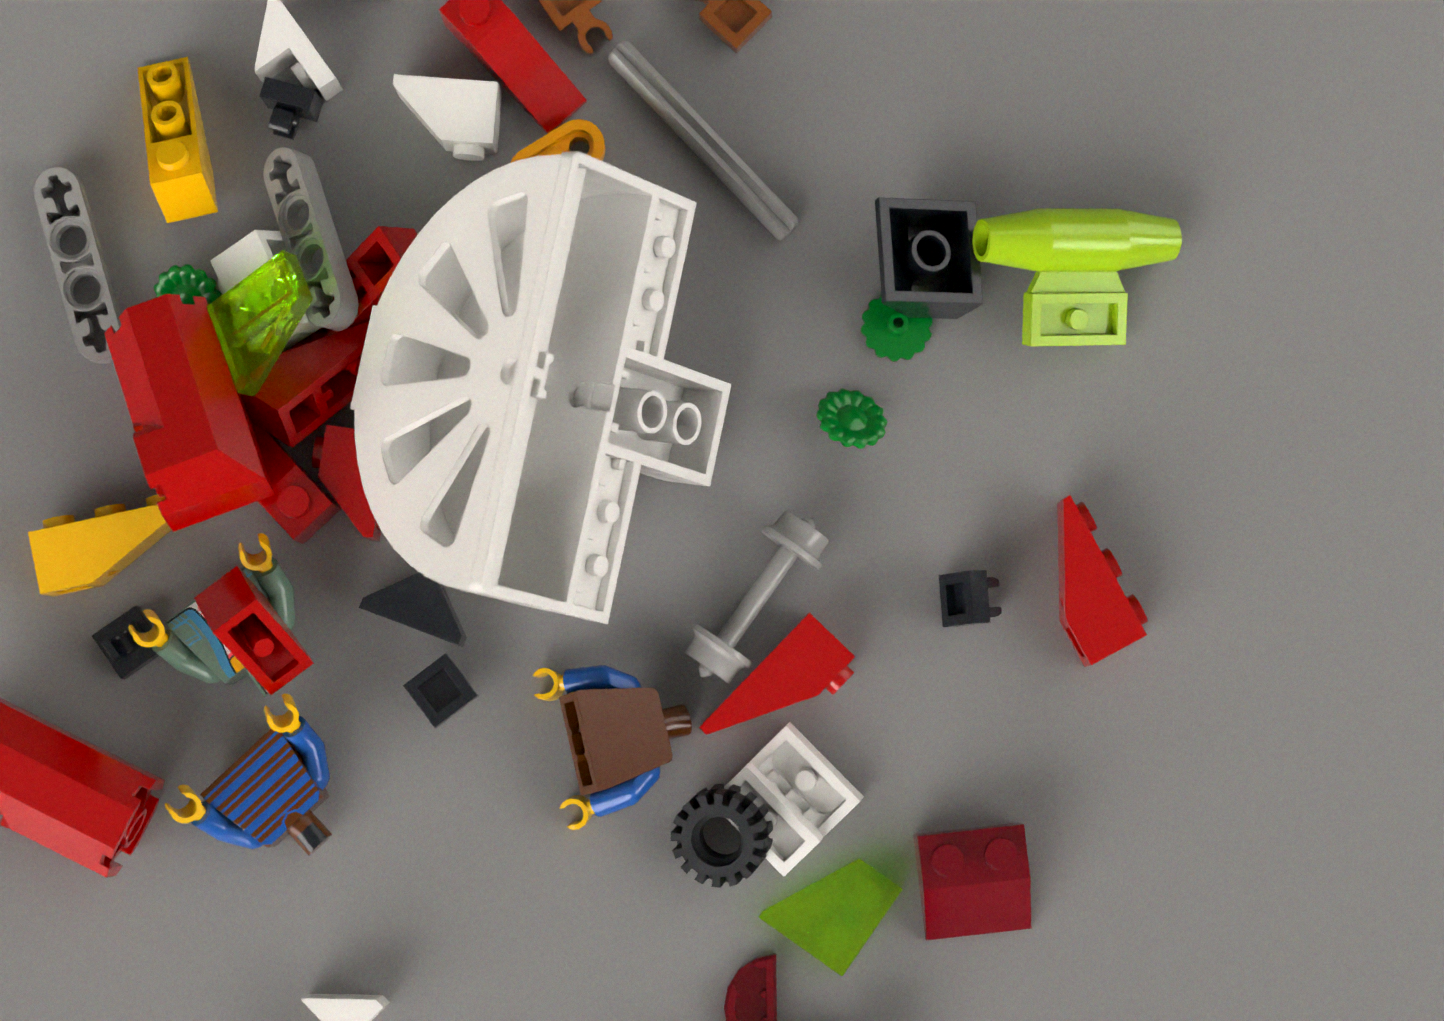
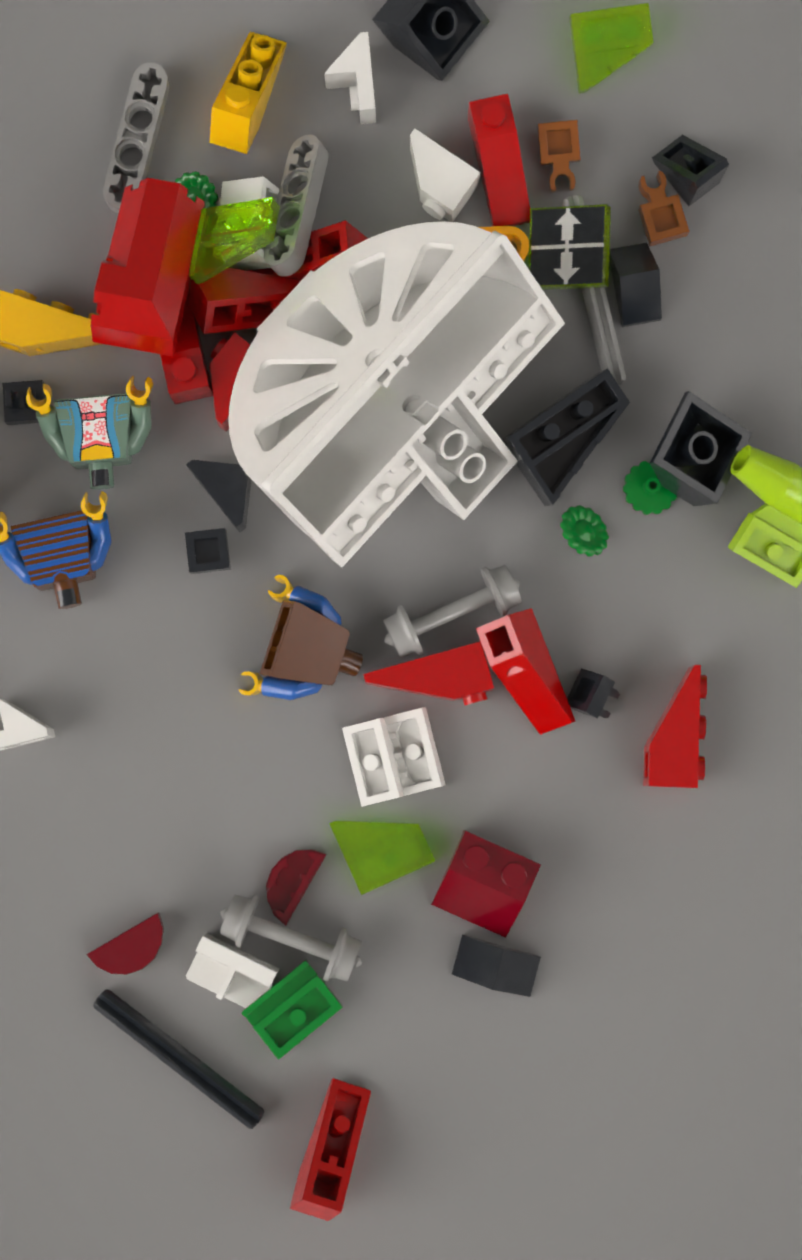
camera: 30 degrees right, 0 degrees up
(252, 630) = (107, 437): red slope -> none
(288, 105) = (334, 110): black tile -> none
(647, 107) = (570, 246): none -> black tile
(697, 853) = (314, 760): black tyre -> none
(746, 104) = (636, 284): none -> black slope
(766, 323) = (564, 434): none -> black wedge
(878, 613) = (526, 669): none -> red slope
(1039, 967) = (496, 966): none -> black slope

